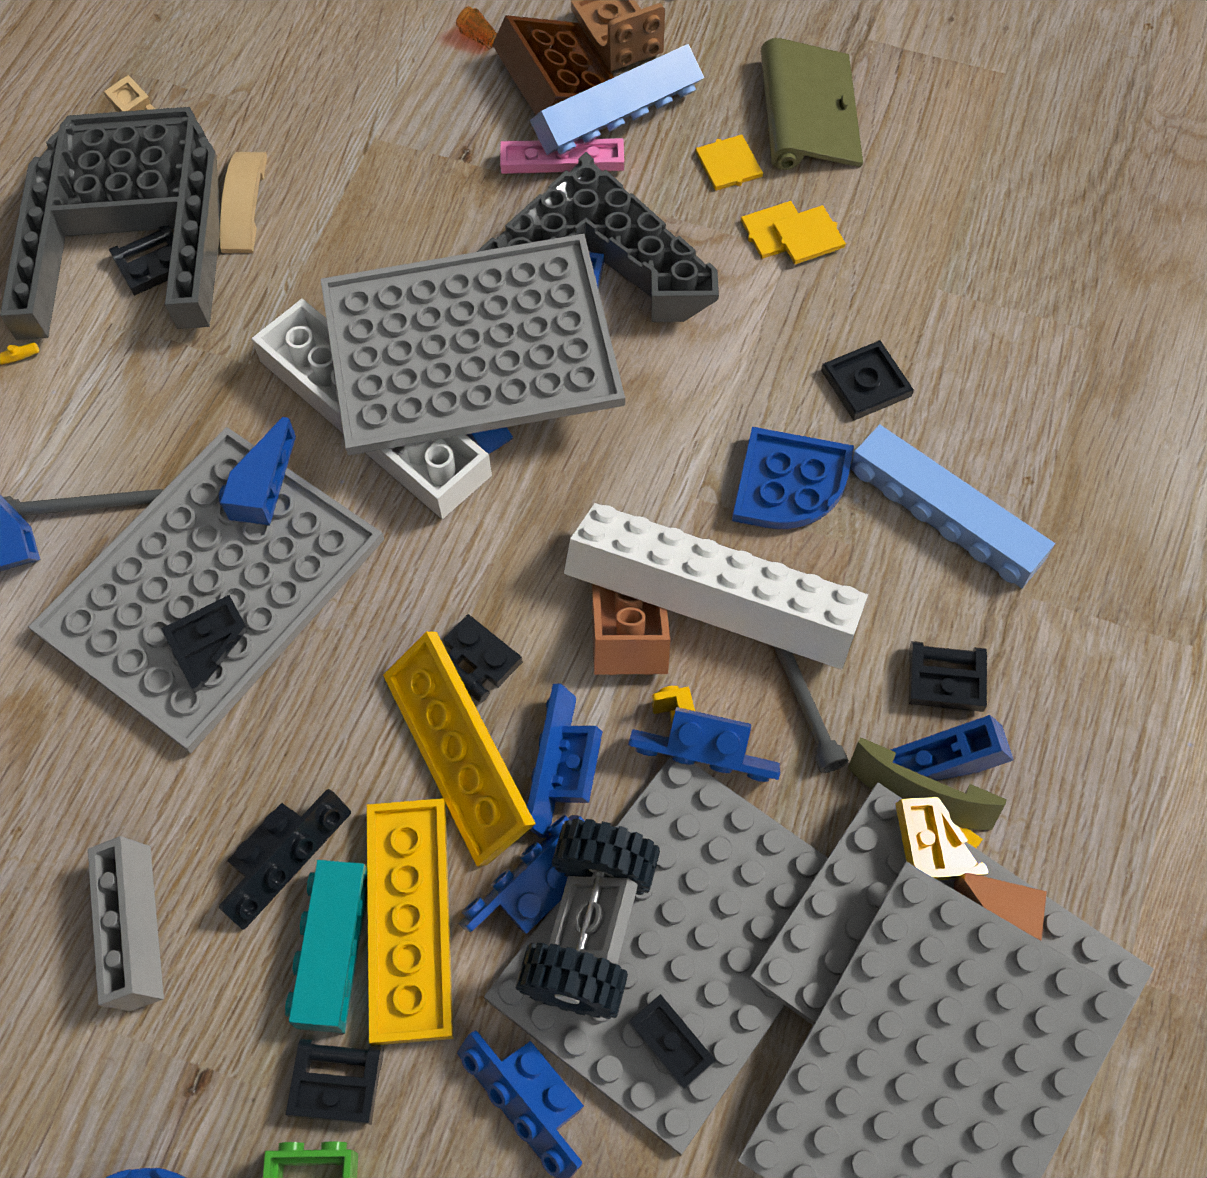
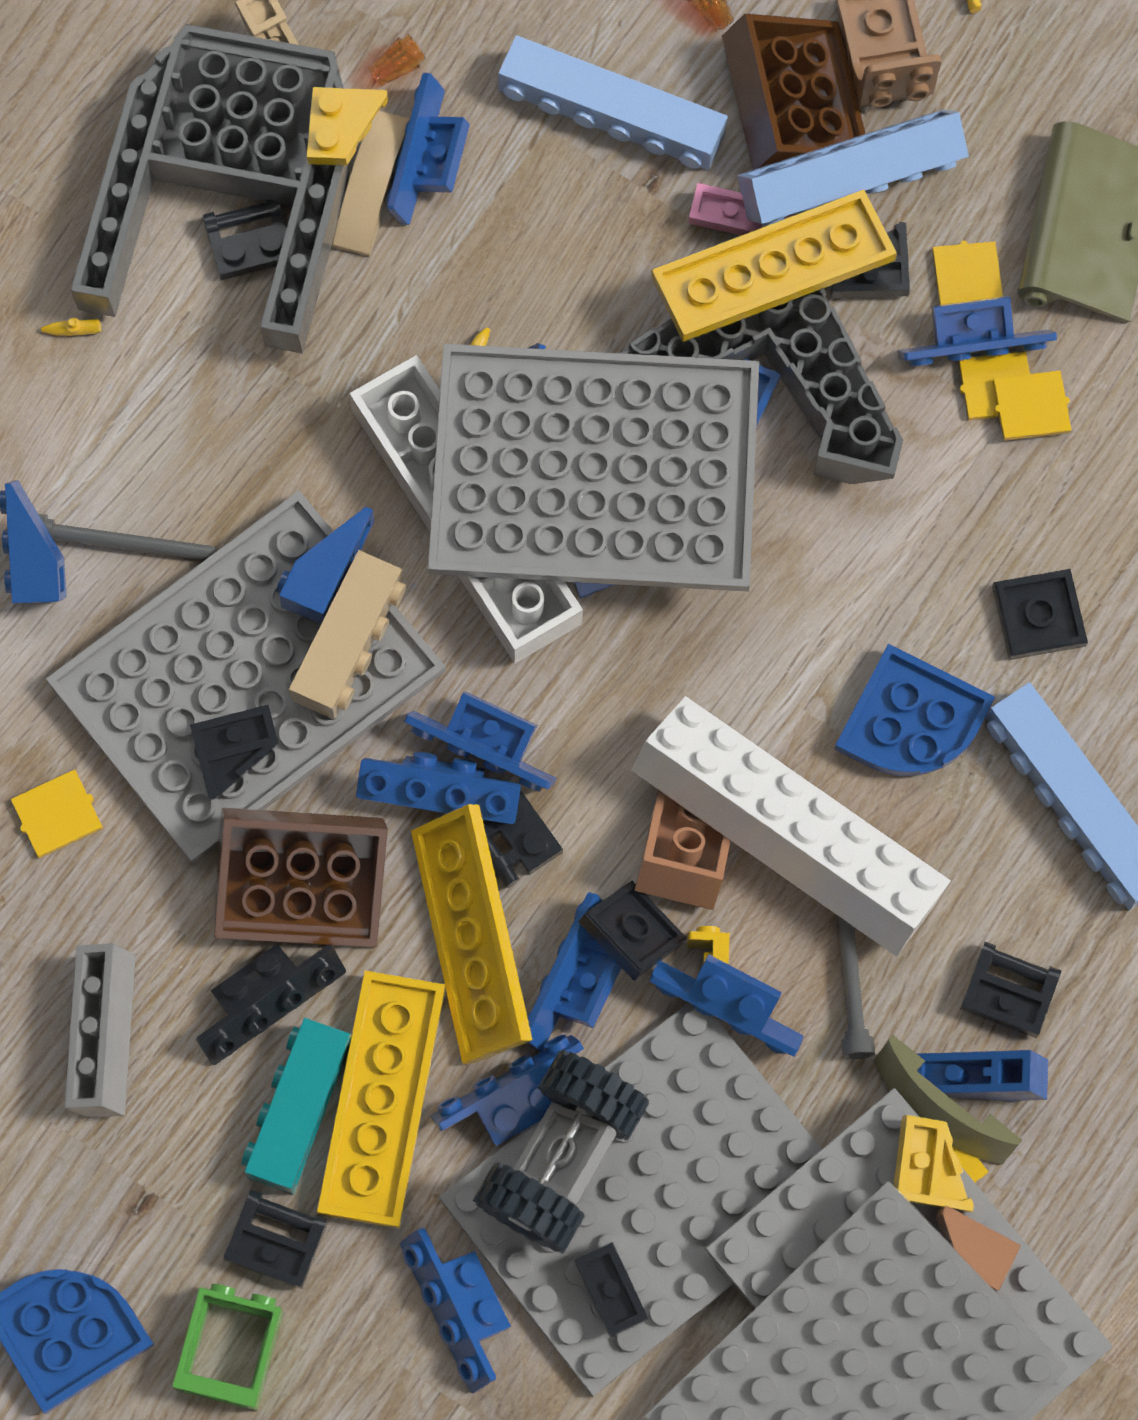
camera: 10 degrees right, 10 degrees up
(58, 741) = (57, 813): none -> yellow piece
(202, 148) = (340, 122): none -> yellow wing
(245, 114) = (397, 60): none -> clear orange cone
(282, 167) = (429, 151): none -> blue bracket
(288, 738) = (299, 877): none -> reddish brown slope
(289, 525) = (347, 635): none -> tan brick
(396, 631) = (438, 786): none -> blue bracket
(419, 105) = (612, 103): none -> light blue brick
(433, 576) = (489, 734): none -> blue bracket
(574, 172) = (773, 265): none -> yellow plate
(601, 707) = (632, 930): none -> black tile
(654, 169) = (883, 281): none -> black wing
(746, 189) = (974, 327): none -> blue bracket

